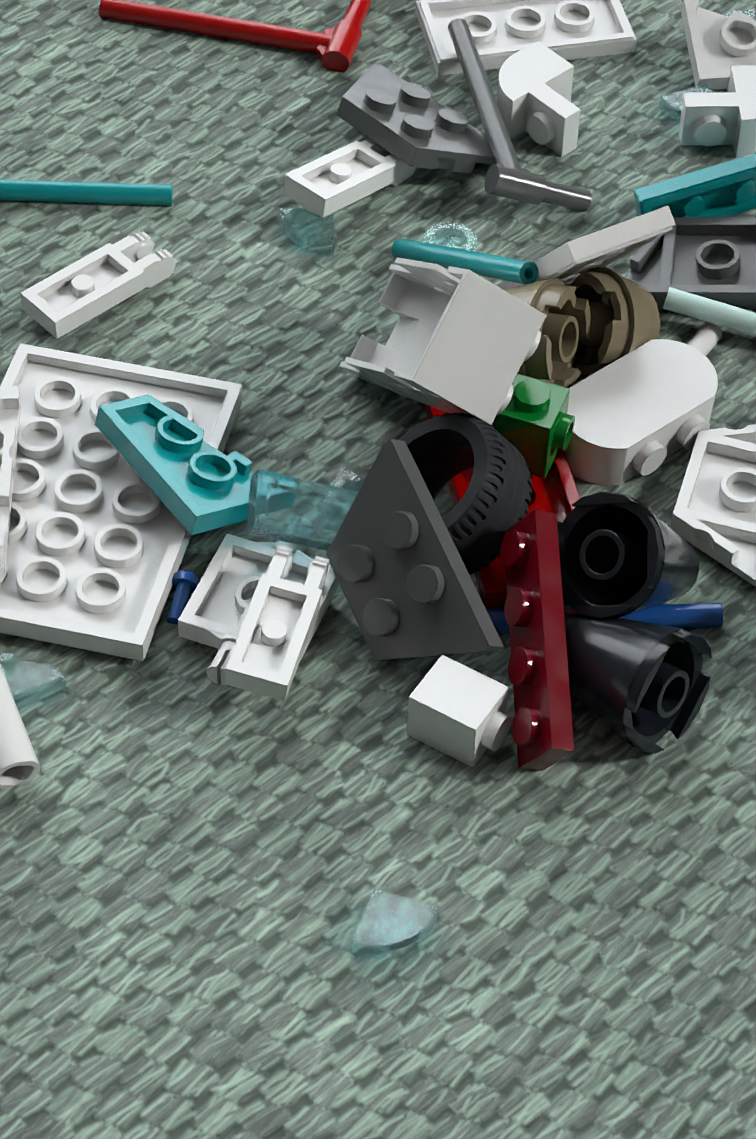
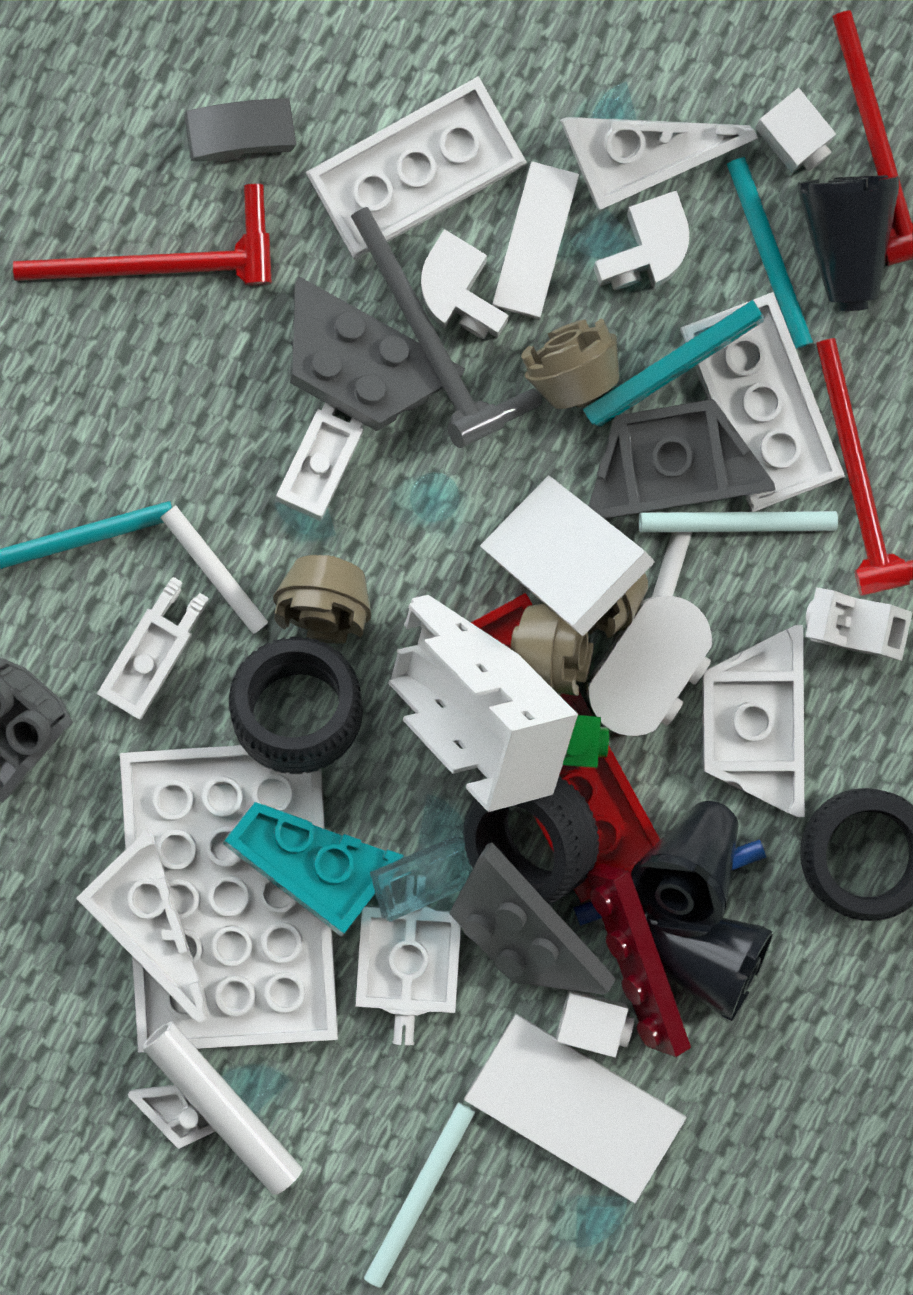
camera: 15 degrees left, 40 degrees up
(170, 843) = (419, 1195): none -> light aqua piece
(184, 584) = (343, 953): blue piece -> none
(193, 239) = (214, 569): none -> white bar
(231, 335) = (284, 659): none -> black tyre
(276, 628) = (438, 1006): white hinge -> none
(296, 268) = (324, 598): none -> dark tan cone
(406, 805) = (575, 1108): none -> white tile
(479, 263) = (464, 561): teal piece -> none
(628, 94) = (535, 240): none -> white tile
(633, 154) = (574, 364): none -> dark tan cone

